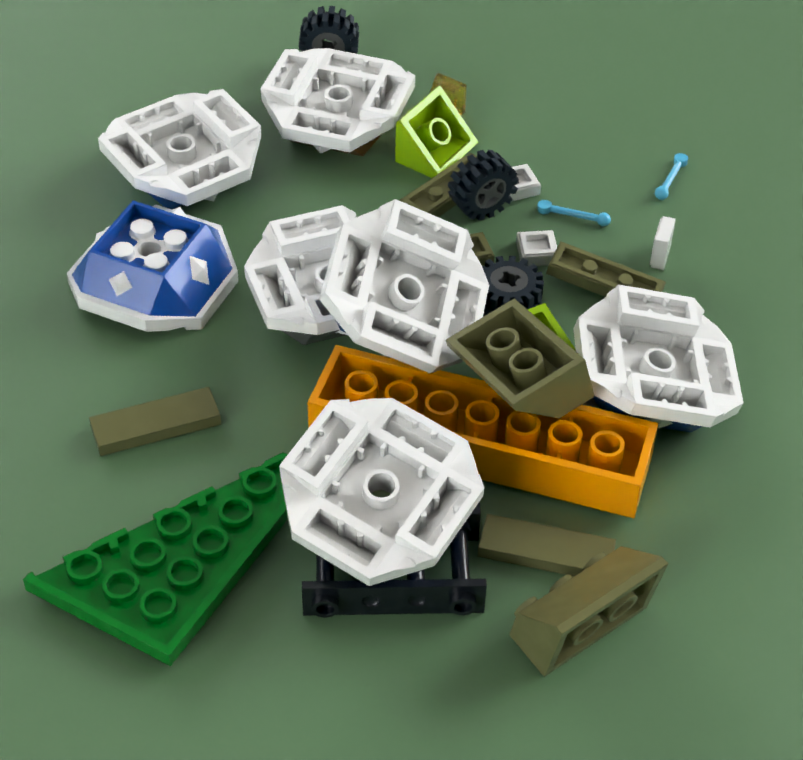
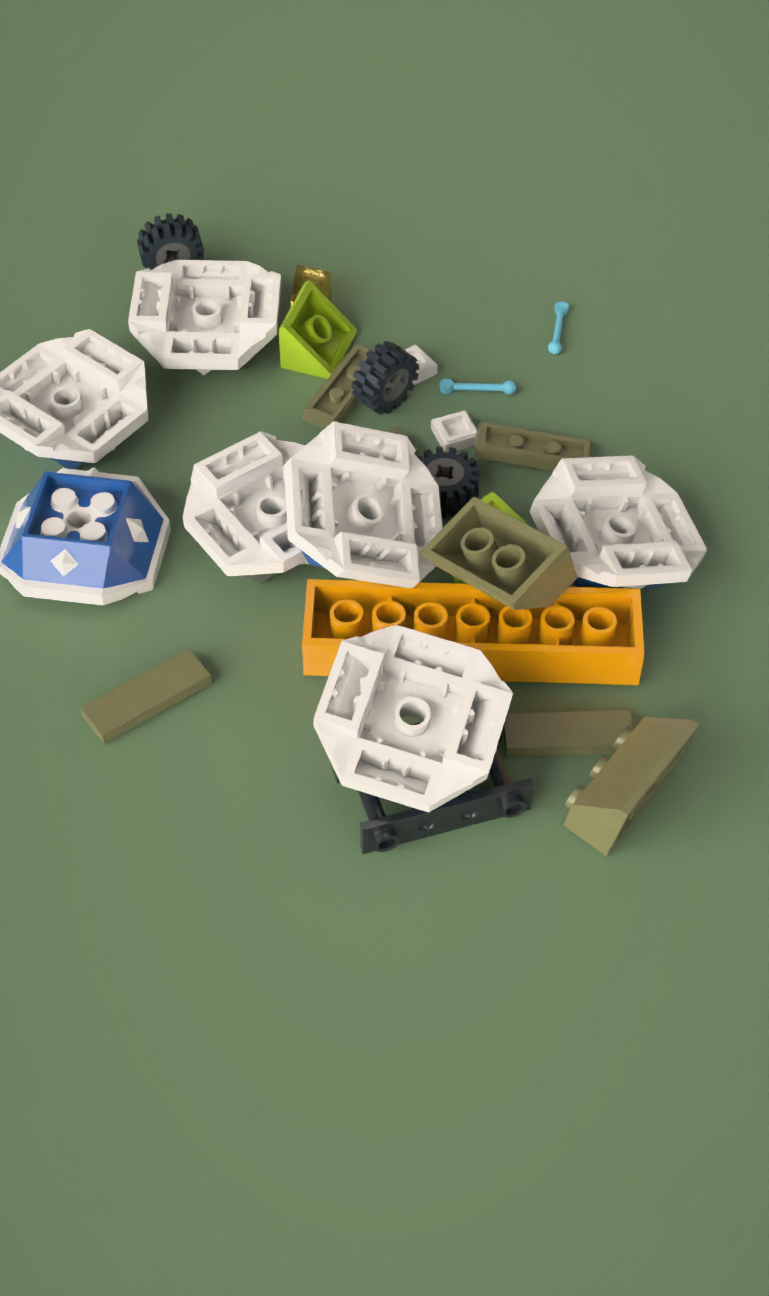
camera: 15 degrees left, 5 degrees up
(173, 572) = (227, 839): green wing -> none
(662, 242) = (575, 401): white tile -> none

